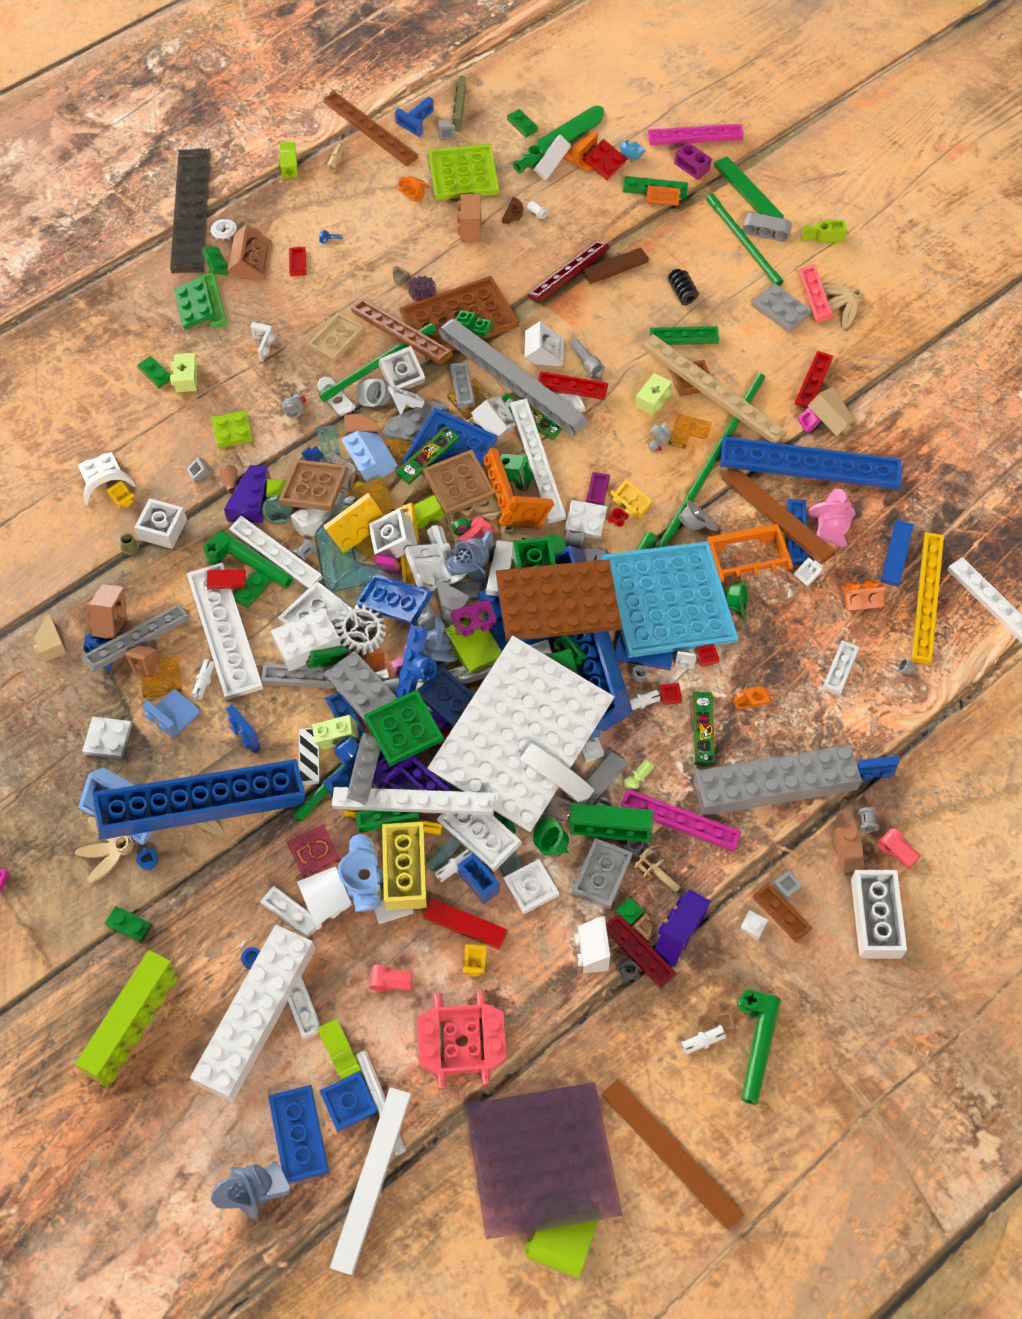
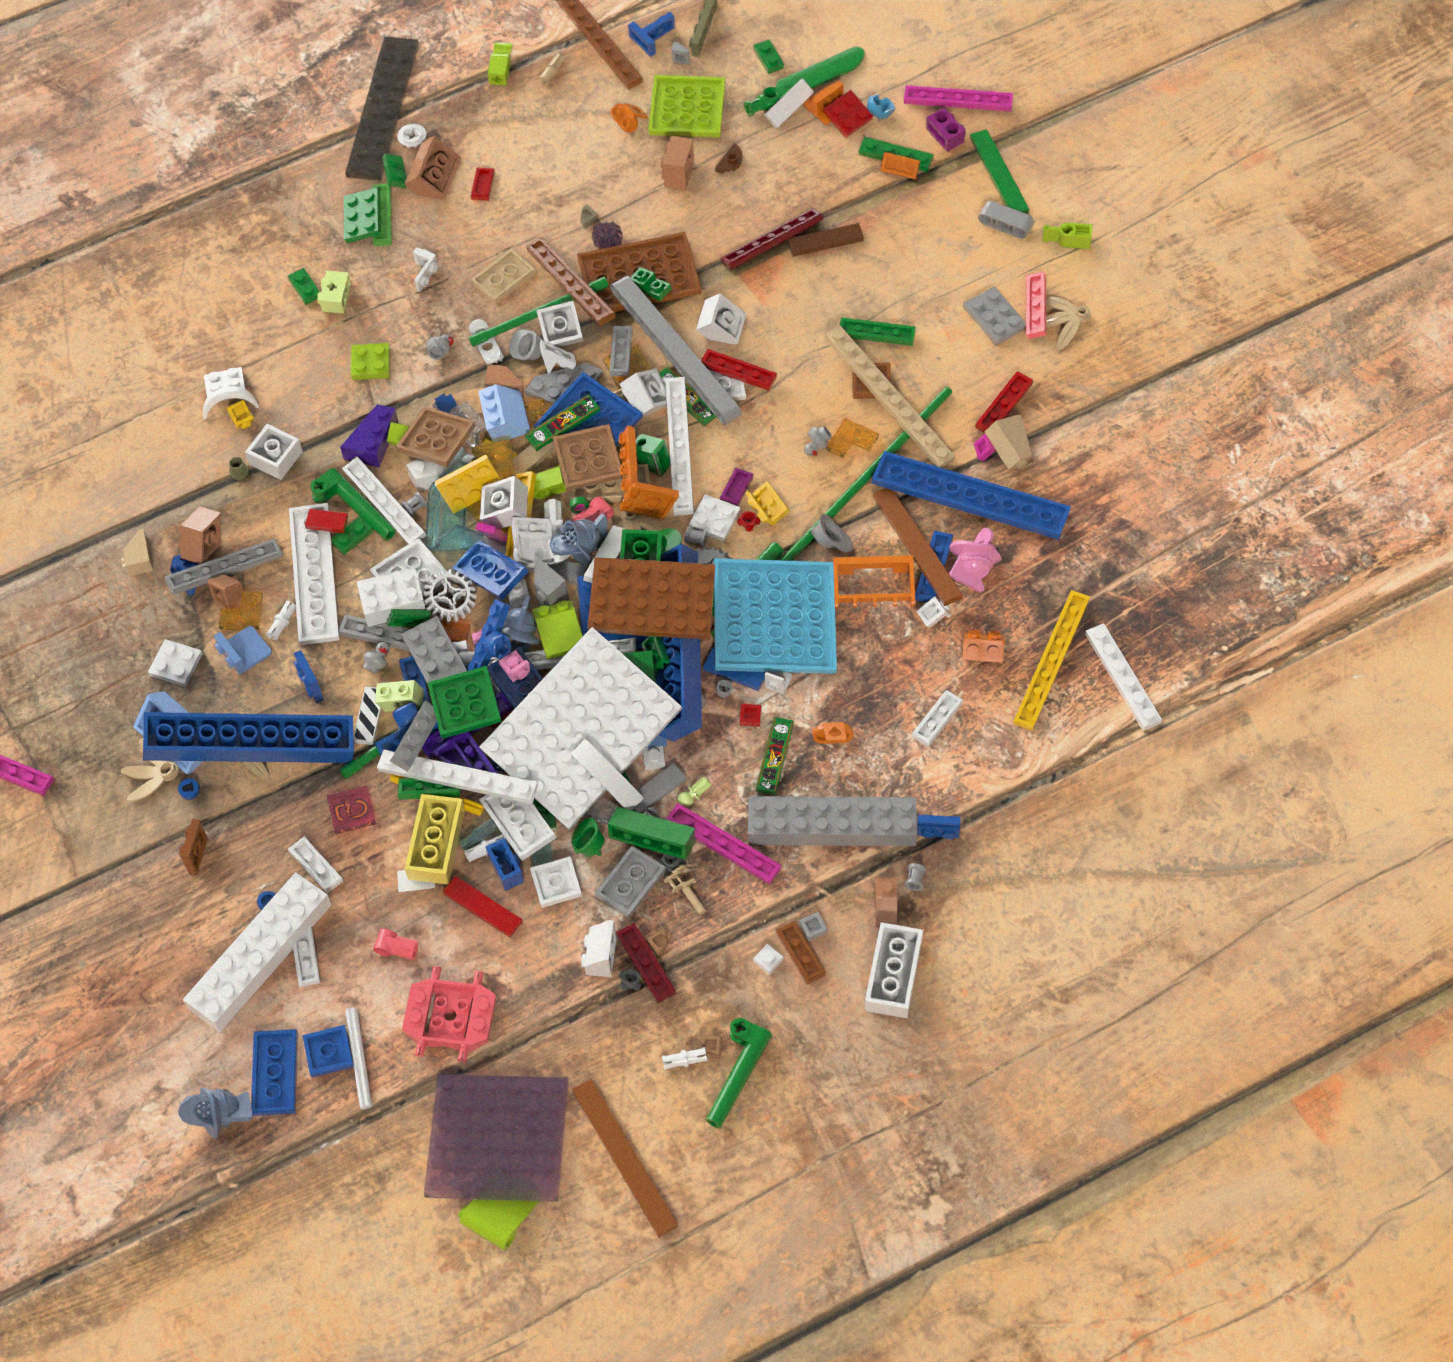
camera: 15 degrees right, 0 degrees up
(127, 1019) = (136, 935): lime brick -> none
(128, 924) = (157, 848): green plate -> none
(167, 916) = (194, 846): none -> dark orange plate
(199, 469) = (326, 399): light grey slope -> none
(229, 477) = (355, 413): nougat cone -> none
(276, 513) = (393, 460): sand green hair -> none
(304, 702) = (374, 659): none -> light grey animal
(324, 236) = (518, 158): blue hand -> none
(324, 895) = (350, 854): white slope -> none
(325, 429) = (473, 403): clear light blue tile -> none
(338, 1049) = (330, 1000): lime piece -> none
(362, 855) = (395, 821): light blue piece -> none
(370, 1182) = (331, 1125): white tile -> none
(443, 685) = (515, 666): none -> bright pink bracket
(471, 614) = (561, 597): magenta brick -> none
(474, 959) = (482, 941): yellow bracket -> none
(540, 212) = (759, 165): white pin -> none
(591, 363) = (767, 348): light grey piece -> none
(629, 911) = (647, 924): green plate -> none
(641, 701) = (717, 717): white pin -> none
(653, 394) = (824, 392): yellowish green brick -> none
(681, 926) = (692, 945): dark purple wedge -> none
(683, 286) = (891, 275): black piece -> none
(707, 655) = (799, 681): red plate -> none
(737, 598) = (849, 628): green piece -> none
(771, 273) = (995, 274): green piece -> none
(894, 844) = (935, 906): coral piece -> none
(897, 553) = (1035, 607): blue tile -> none
(906, 666) = (1006, 729): light grey hinge -> none

